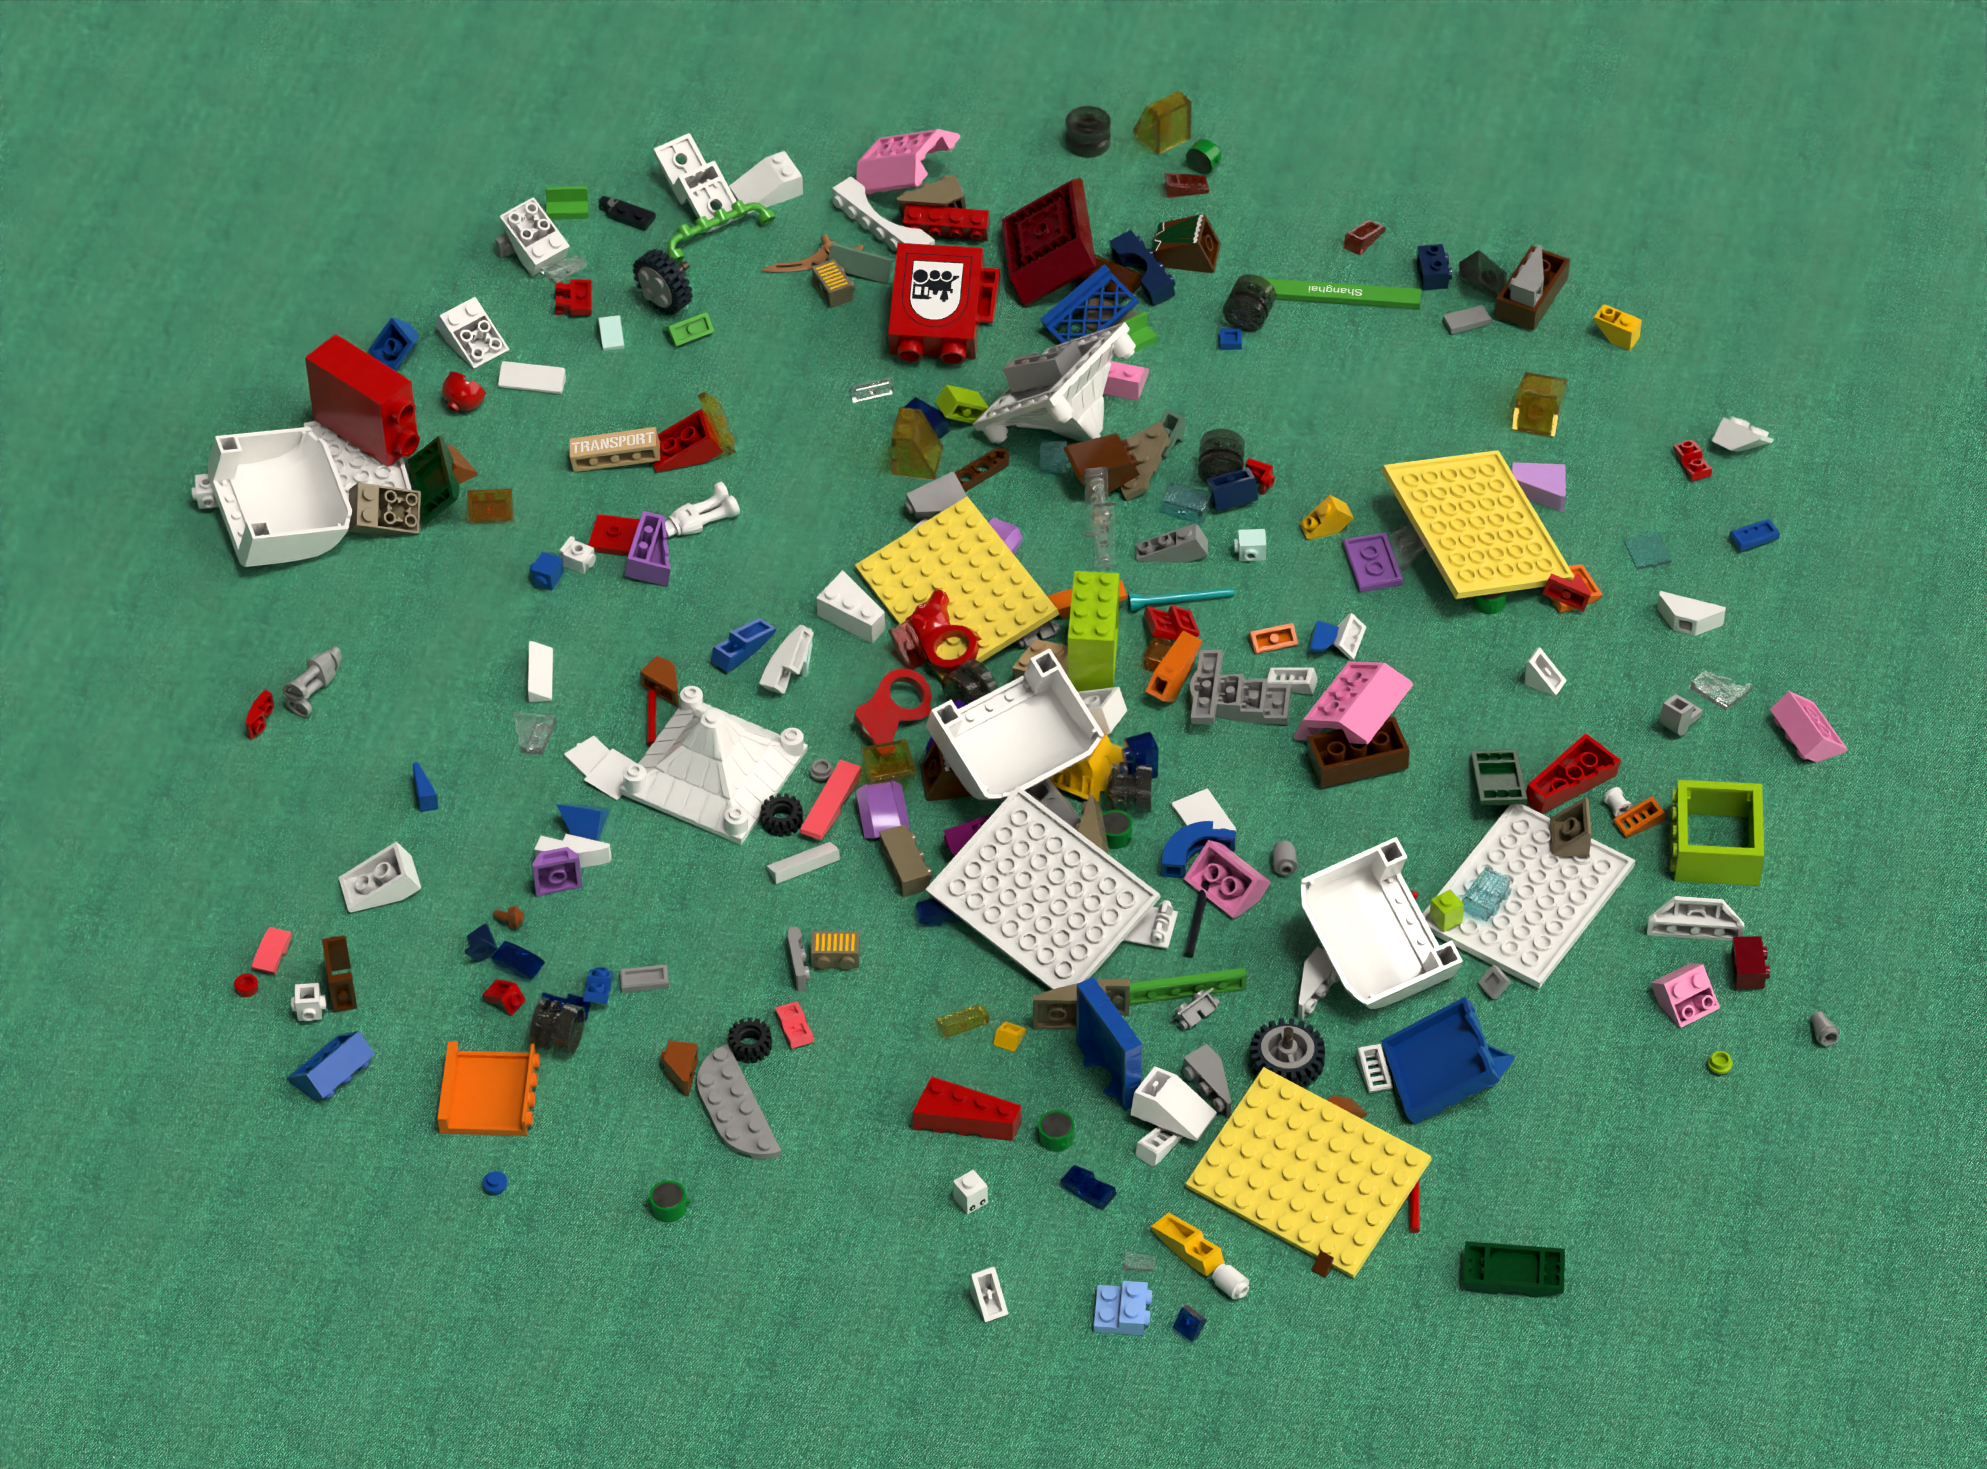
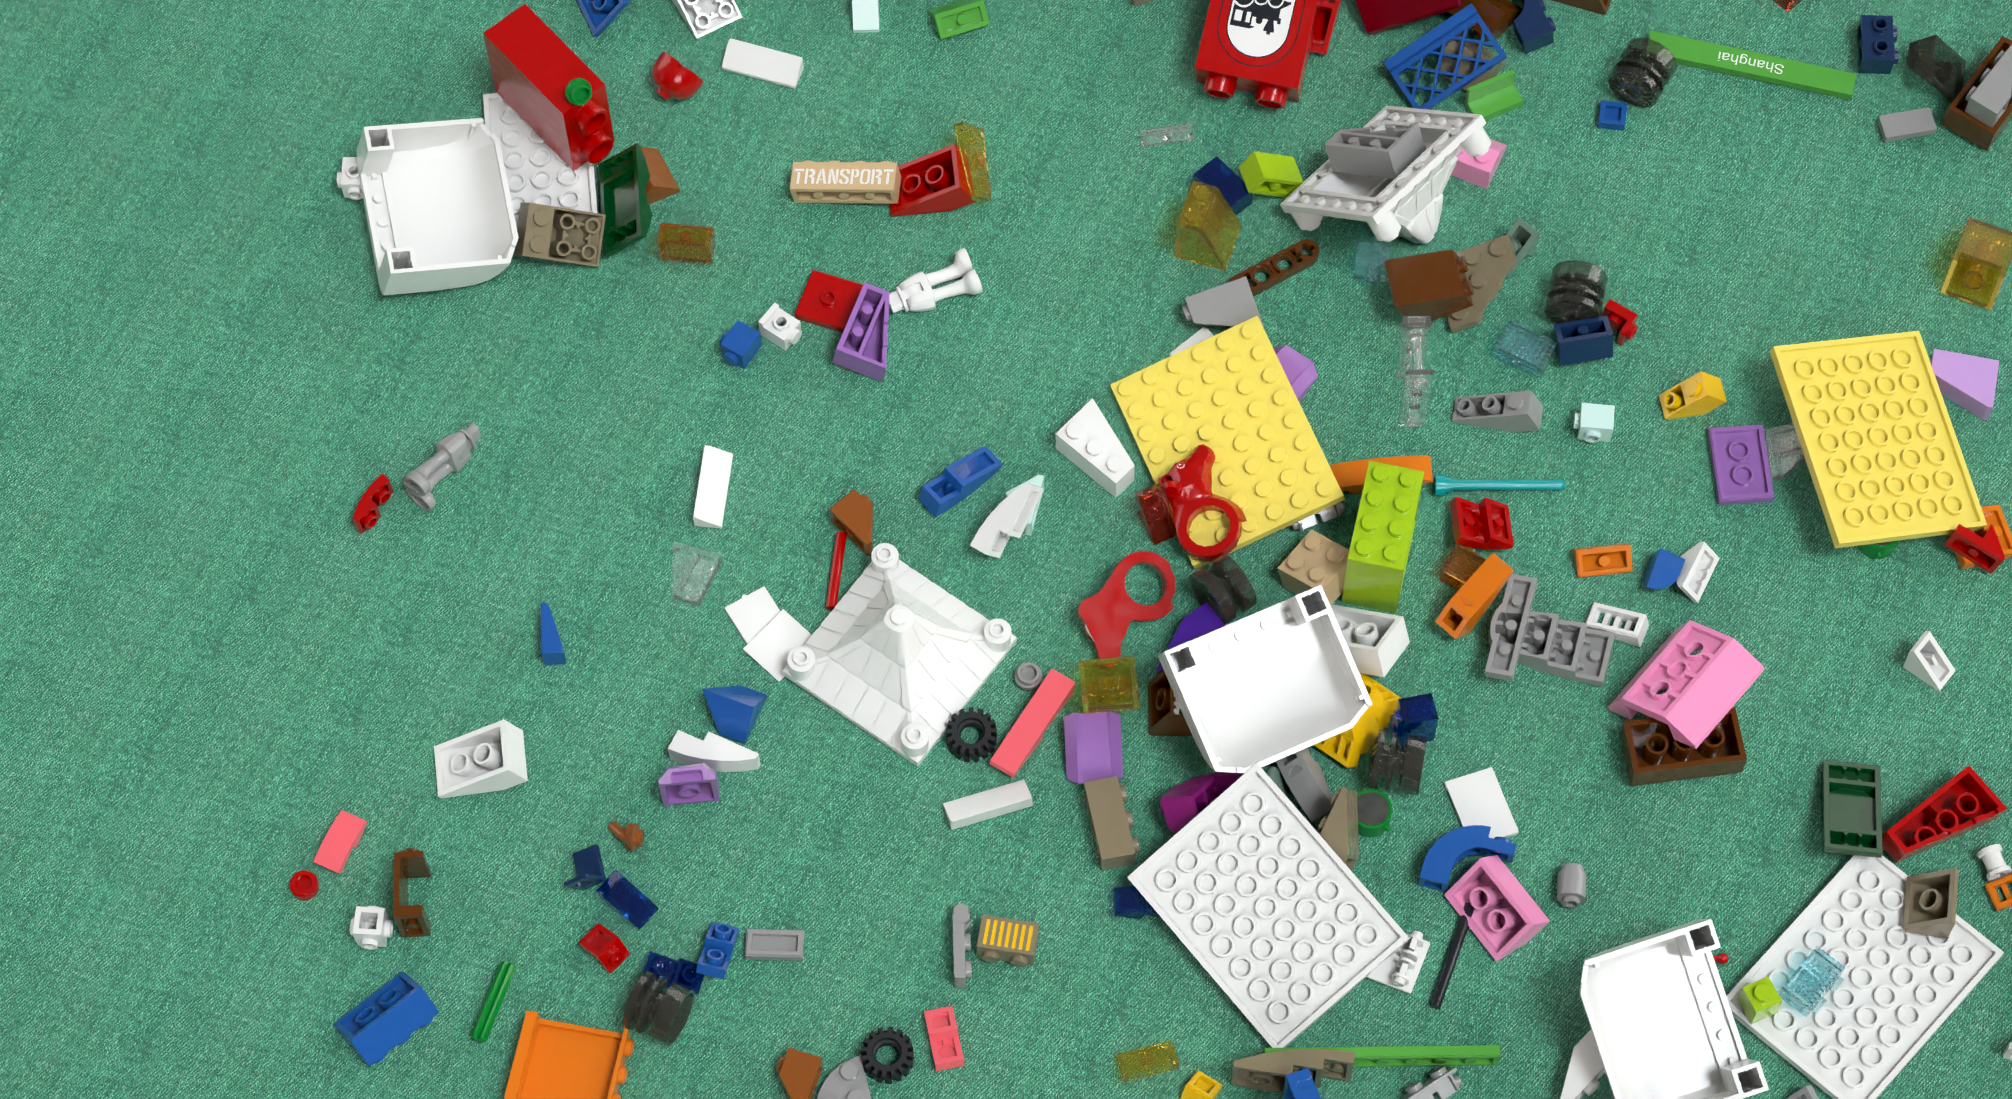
camera: 10 degrees right, 15 degrees up
(391, 385) = (578, 91): none -> green plate
(418, 1045) = (493, 1002): none -> green axle

